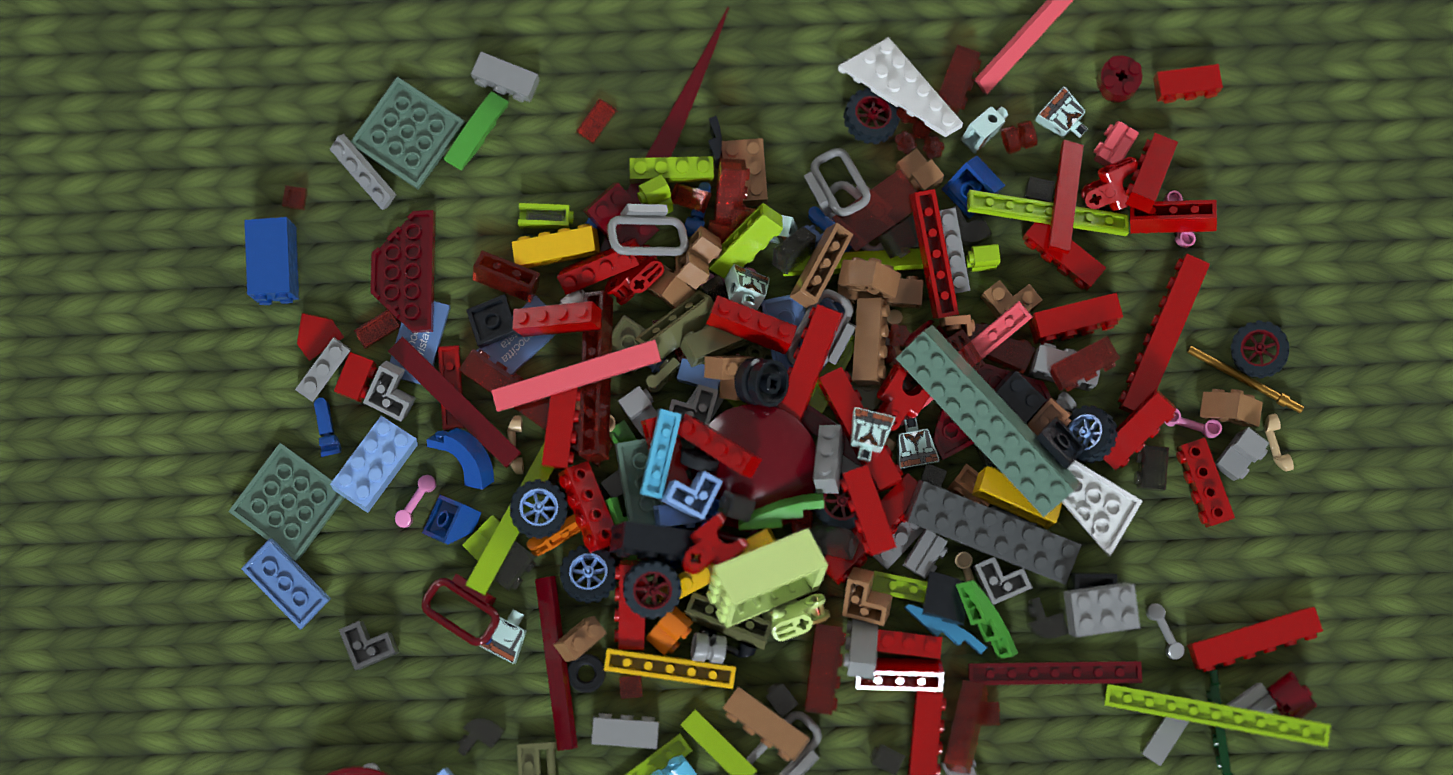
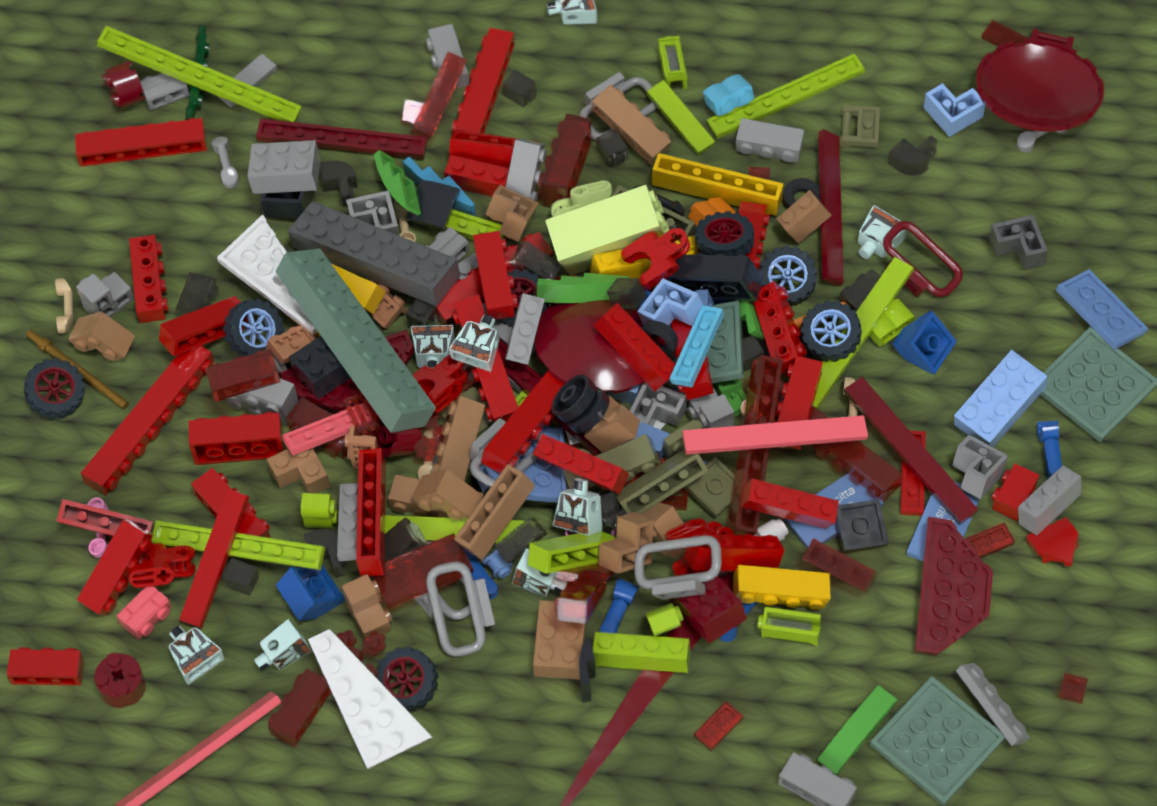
camera: 170 degrees left, 20 degrees down
(271, 260) = (1101, 616): blue brick -> none
(425, 484) = (948, 380): bright pink bar -> none
(469, 452) = (902, 400): blue arch -> none
(690, 197) = (623, 618): clear red tile -> none
(708, 648) = (679, 190): light grey wheel -> none
(1020, 136) = (255, 630): clear red wheel -> none
(1060, 442) = (285, 308): black plate -> none
(1209, 430) = (128, 323): bright pink bar -> none

